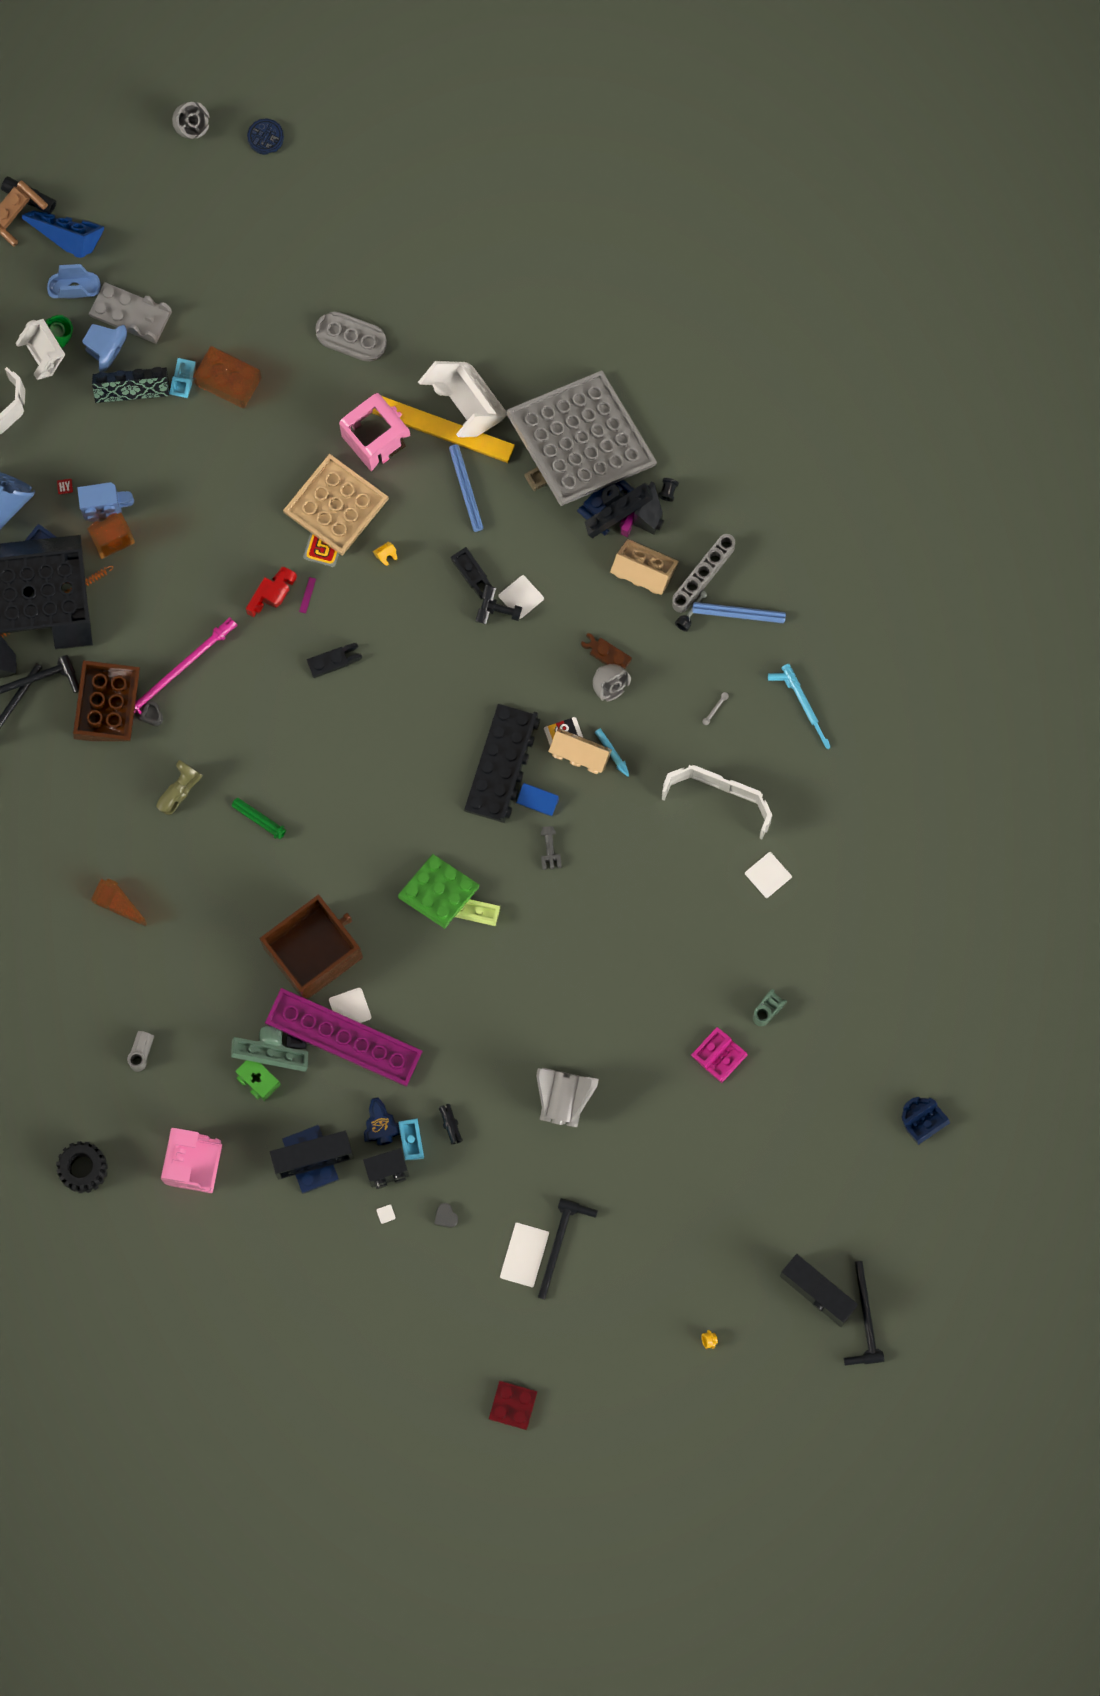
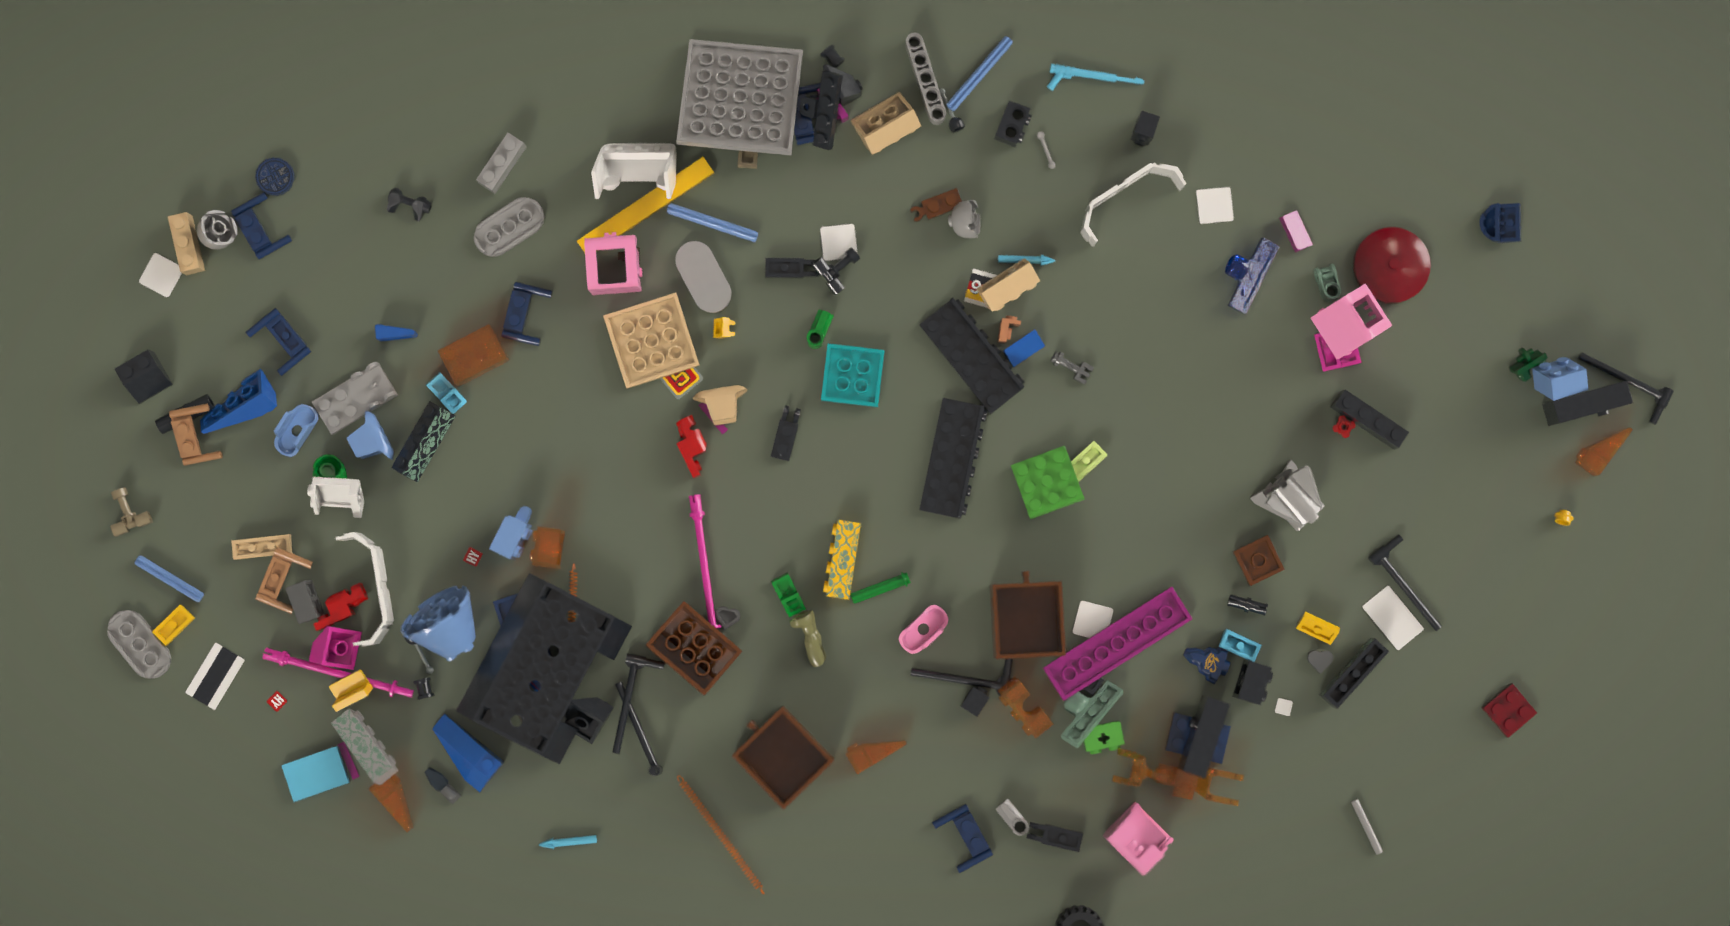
camera: 65 degrees left, 10 degrees up
(37, 145) = (143, 376): none -> black slope
(65, 828) = (783, 757): none -> reddish brown piece
(103, 1026) = (970, 833): none -> dark blue plate
(127, 106) = (160, 275): none -> white sticker
(143, 227) = (285, 336): none -> dark blue plate
(149, 1098) = (1057, 837): none -> black hinge
(163, 106) = (186, 243): none -> tan brick
(200, 302) = (389, 333): none -> blue slope
(203, 749) = (788, 594): none -> green slope
(211, 148) = (253, 229): none -> dark blue plate
(217, 955) = (975, 700): none -> black brick
(231, 1013) = (1034, 721): none -> clear orange arch
(234, 869) = (936, 620): none -> bright pink piece
(244, 969) = (968, 680): none -> black bar
(261, 771) = (843, 559): none -> yellow brick
(264, 1173) = (1183, 782): none -> clear orange piece
(287, 388) = (518, 311): none -> dark blue plate
(319, 257) = (420, 205): none -> black piece
(322, 592) = (721, 403): none -> tan piece
(331, 1351) = (1367, 827): none -> light grey bar
(397, 295) = (501, 163): none -> light grey brick
(406, 804) = (952, 458): none -> black bracket
(416, 510) = (703, 277): none -> light grey tile
(418, 679) = (852, 375): none -> teal plate
(439, 627) = (819, 327): none -> green piece
(452, 1248) = (1354, 673): none -> black brick
(471, 1195) = (1318, 628): none -> yellow plate
(494, 1108) = (1258, 560): none -> reddish brown plate
(539, 774) = (1004, 330): none -> nougat bracket
(656, 1108) = (1343, 421): none -> red plate
(677, 1119) = (1369, 419): none -> black brick
(714, 661) = (1009, 122): none -> black brick
(729, 939) = (1250, 274): none -> clear blue plate
(733, 1039) = (1343, 326): none -> bright pink piece
(784, 1332) = (1598, 455): none -> clear orange slope
(787, 771) = (1145, 128): none -> black brick
(793, 954) = (1296, 231): none -> slope
(810, 1217) = (1526, 361): none -> dark green hips
(822, 1052) = (1392, 264): none -> dark red dish
(822, 1251) = (1560, 378): none -> medium blue brick

